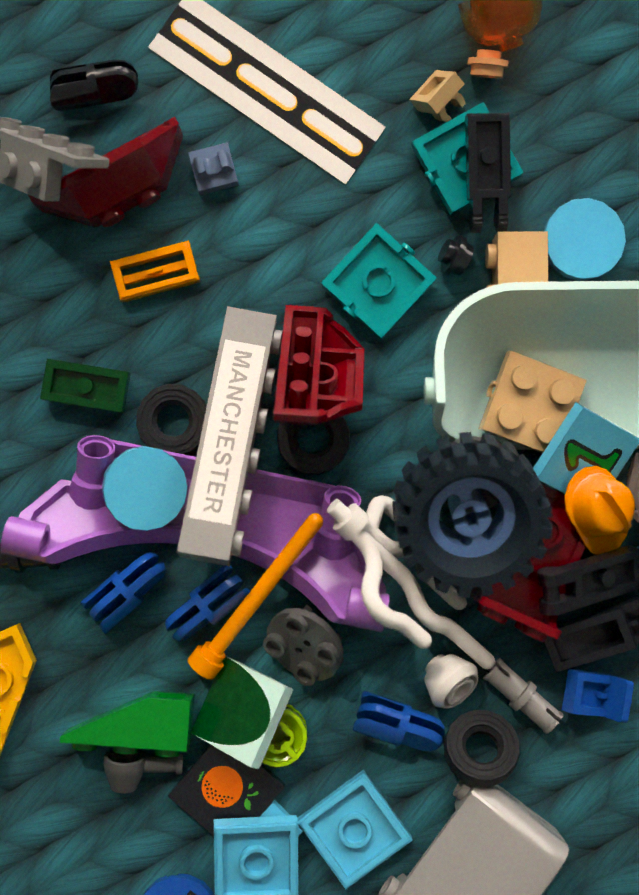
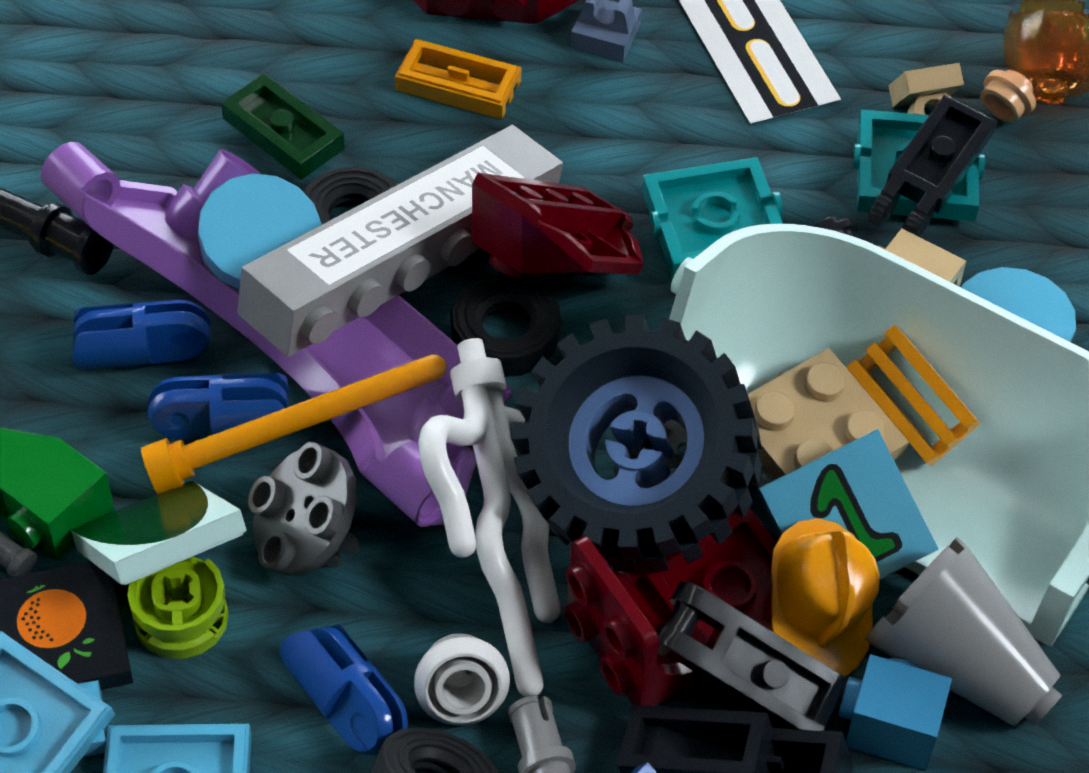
camera: 35 degrees right, 35 degrees down
(594, 374) = (878, 355): none -> light orange tile

